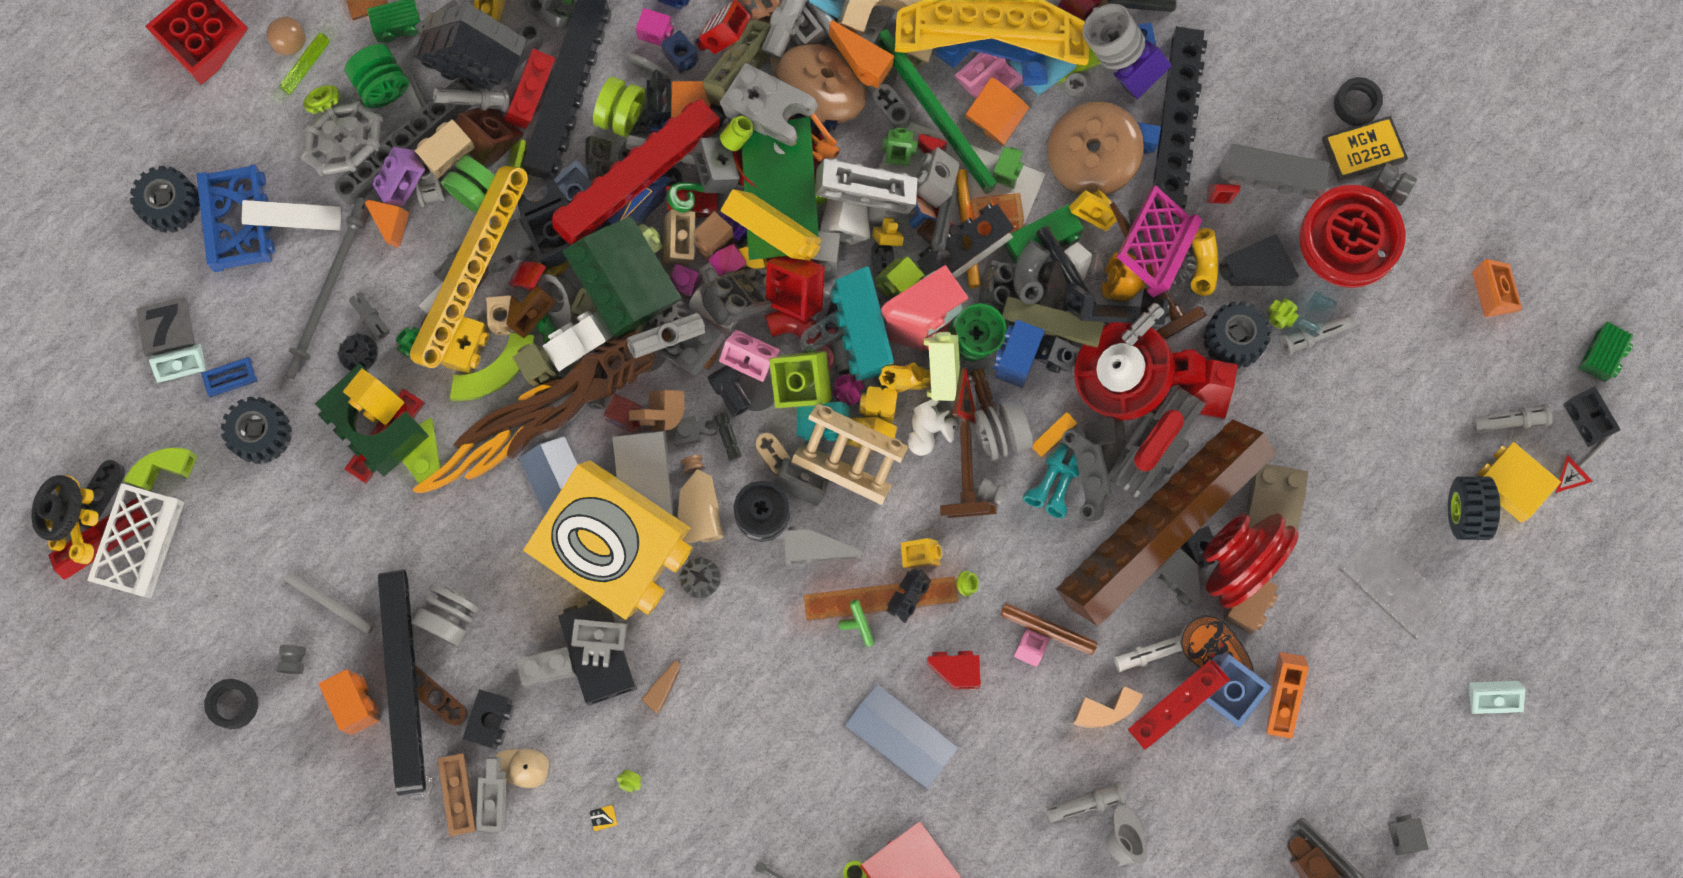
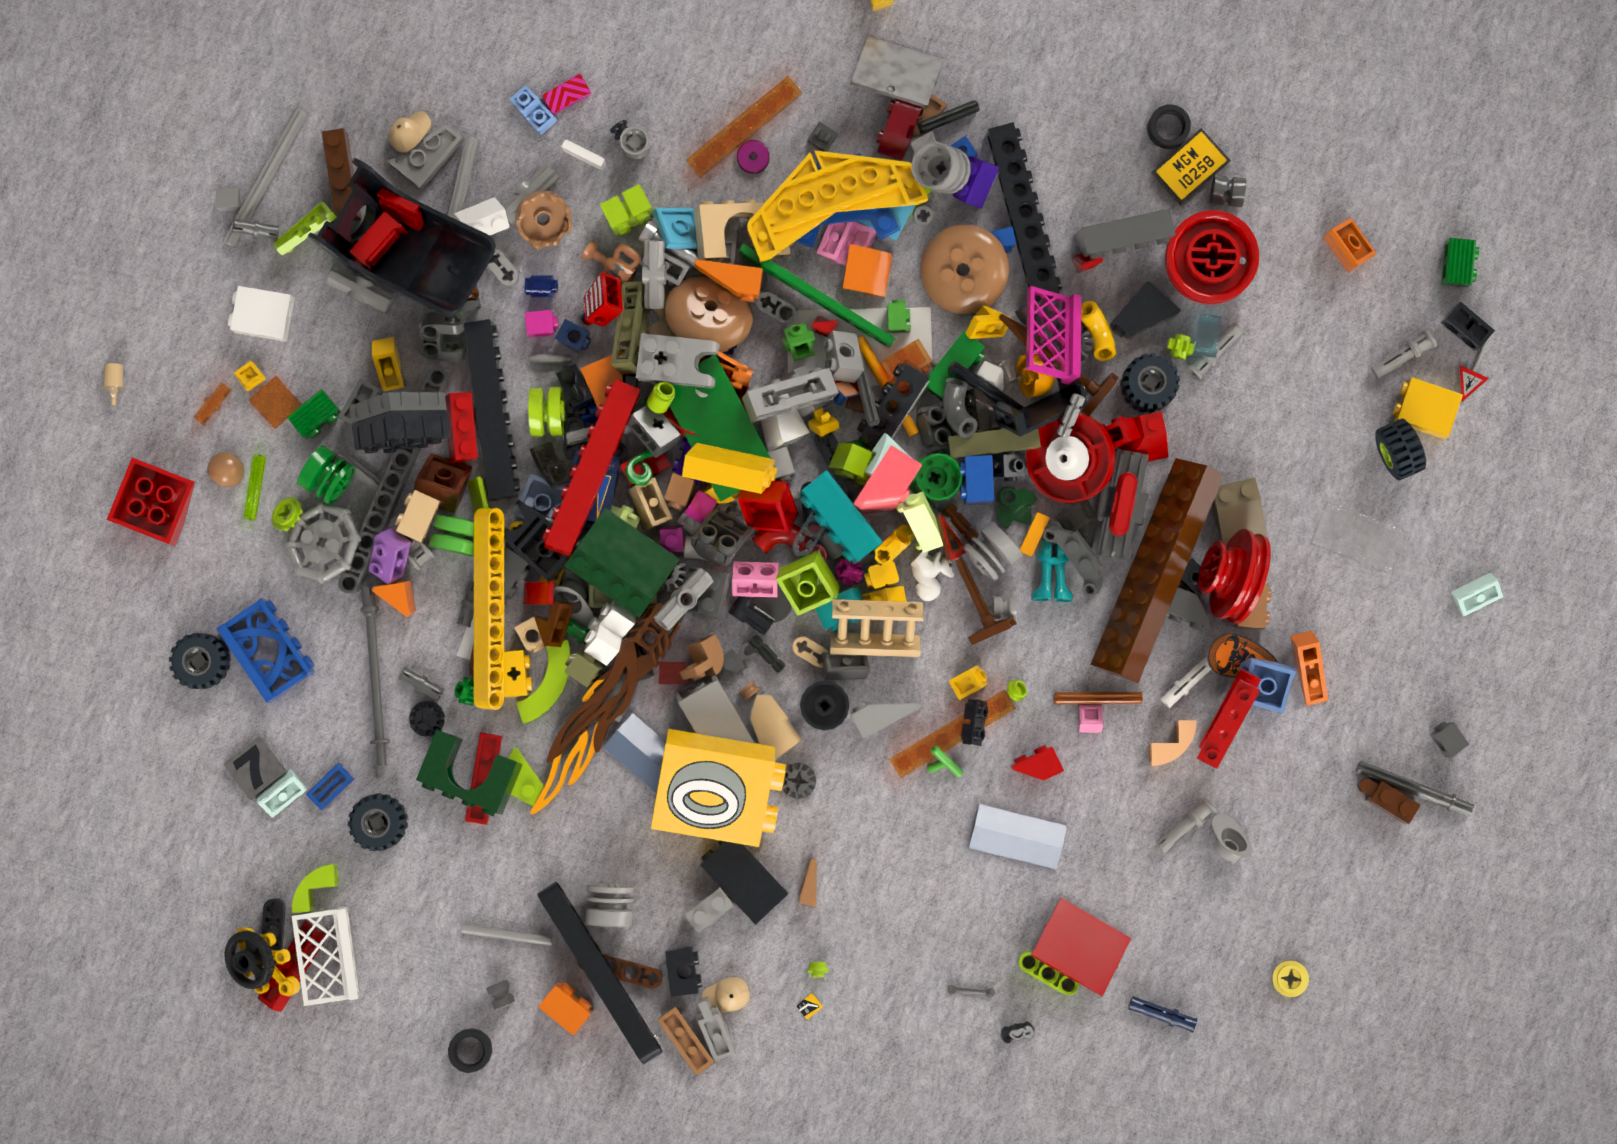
camera: 20 degrees left, 10 degrees up
(291, 215) = (313, 627): white sticker -> none
(373, 397) = (463, 754): yellow brick -> none
(483, 98) = (424, 456): light grey pin -> none
(598, 639) = (743, 871): light grey hinge -> none
(1047, 402) = (1017, 509): none -> dark green plate

